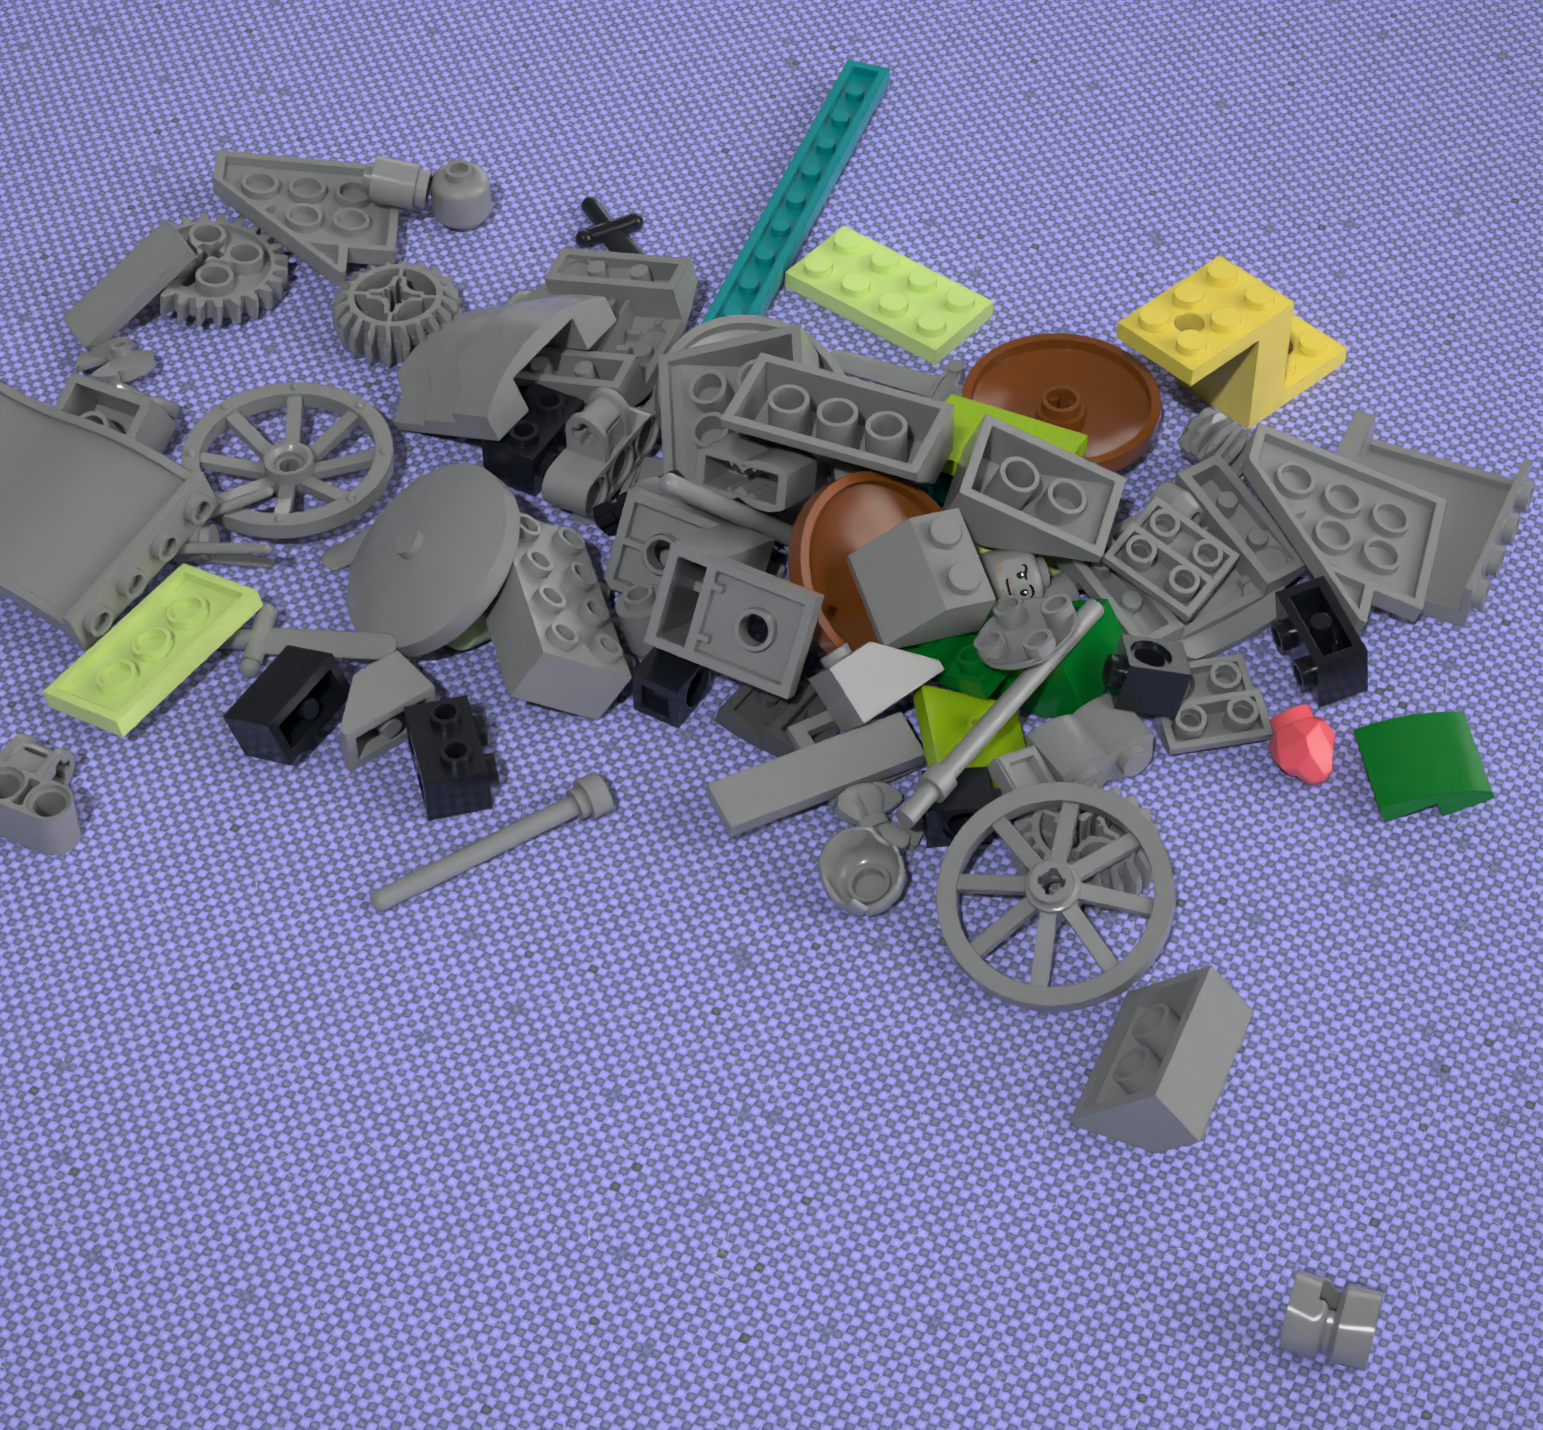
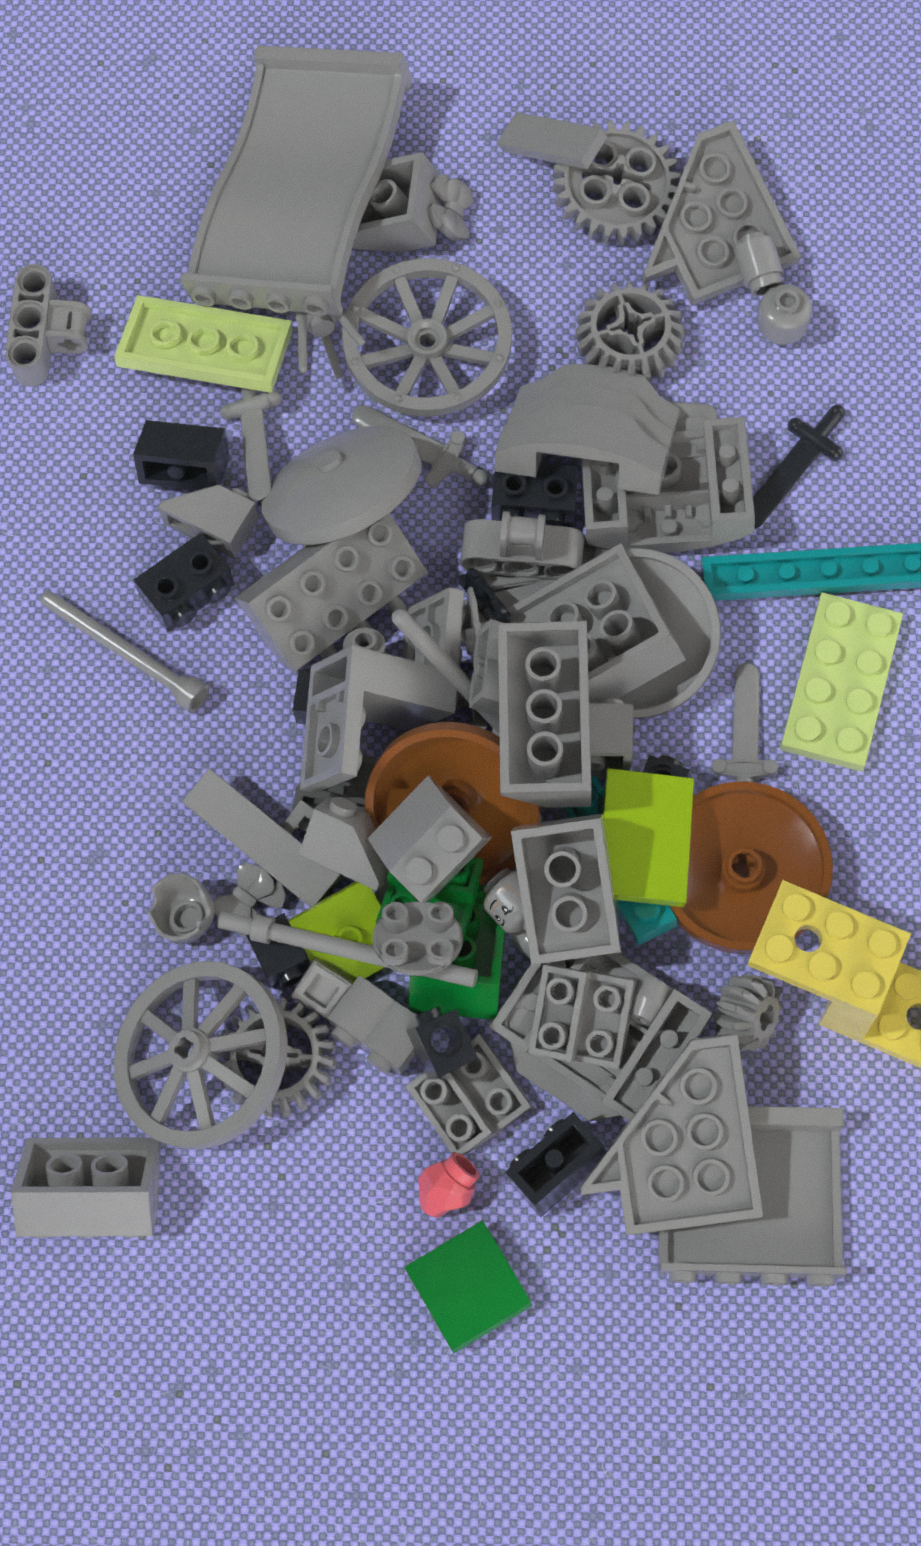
camera: 70 degrees right, 25 degrees up
(118, 360) = (489, 180): light grey piece -> none

